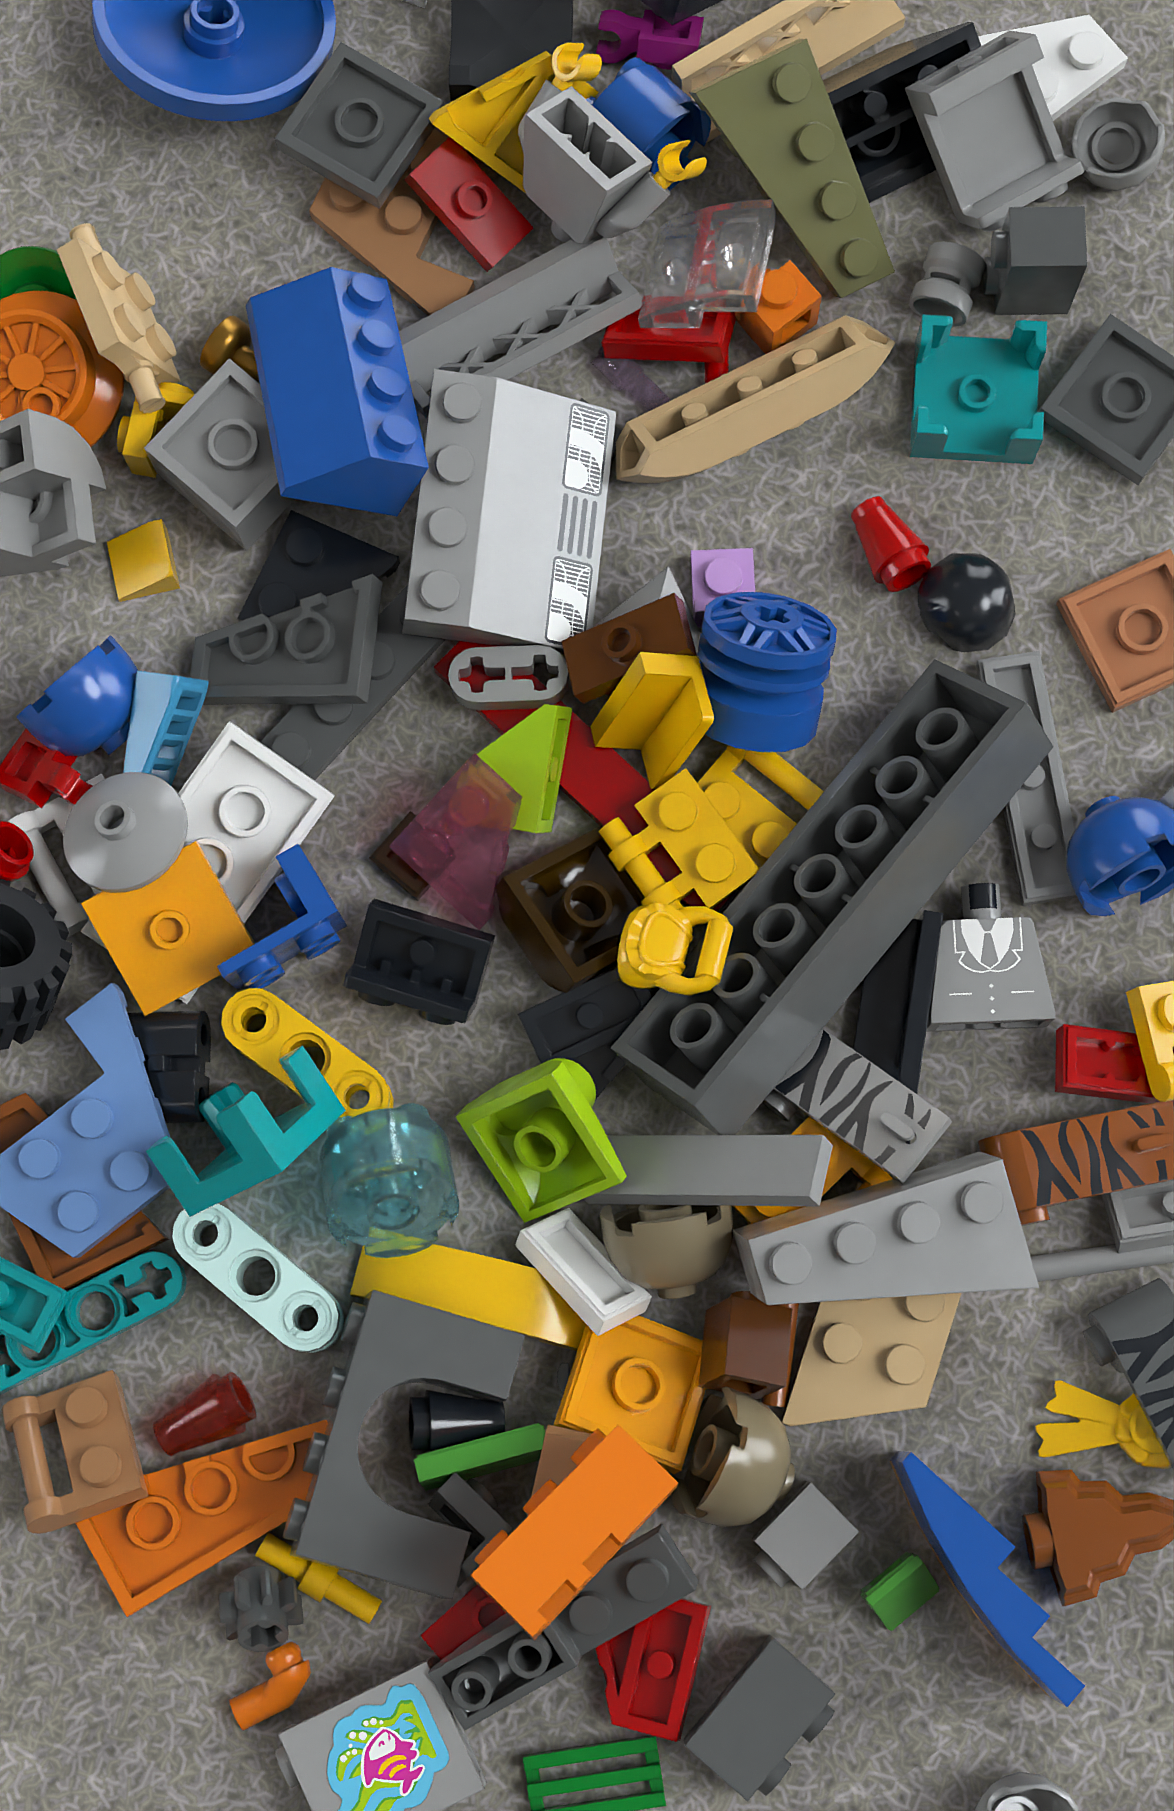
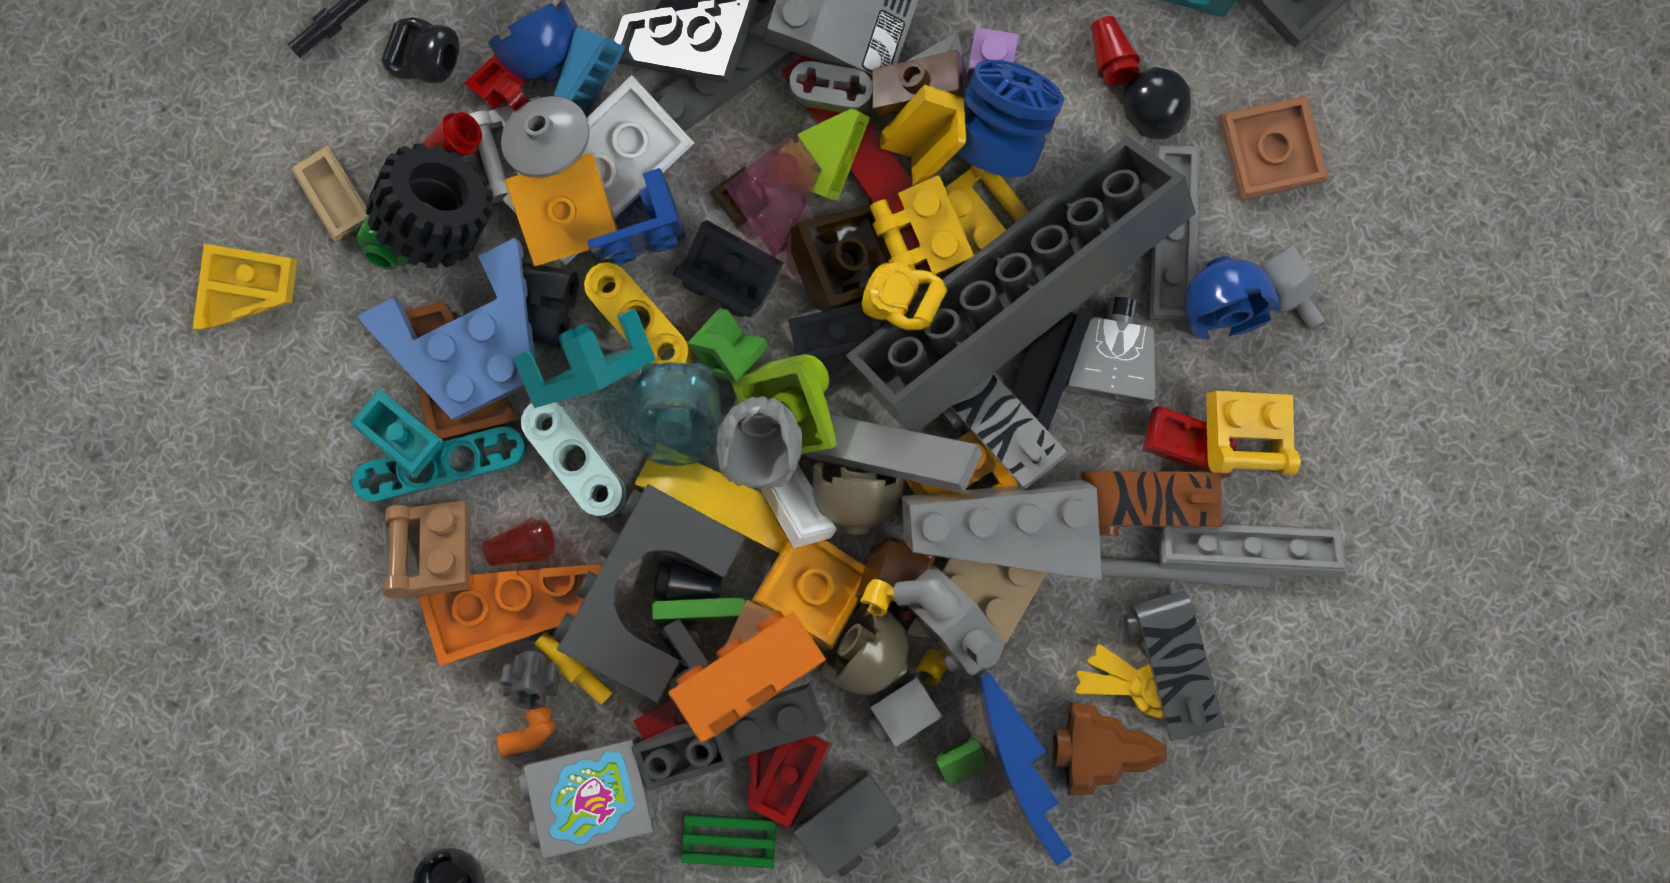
camera: 10 degrees right, 5 degrees up
(440, 1073) = (725, 347): none -> bright green panel
(517, 1199) = (759, 443): none -> light grey hair
(837, 1389) = (947, 617): none -> light grey torso

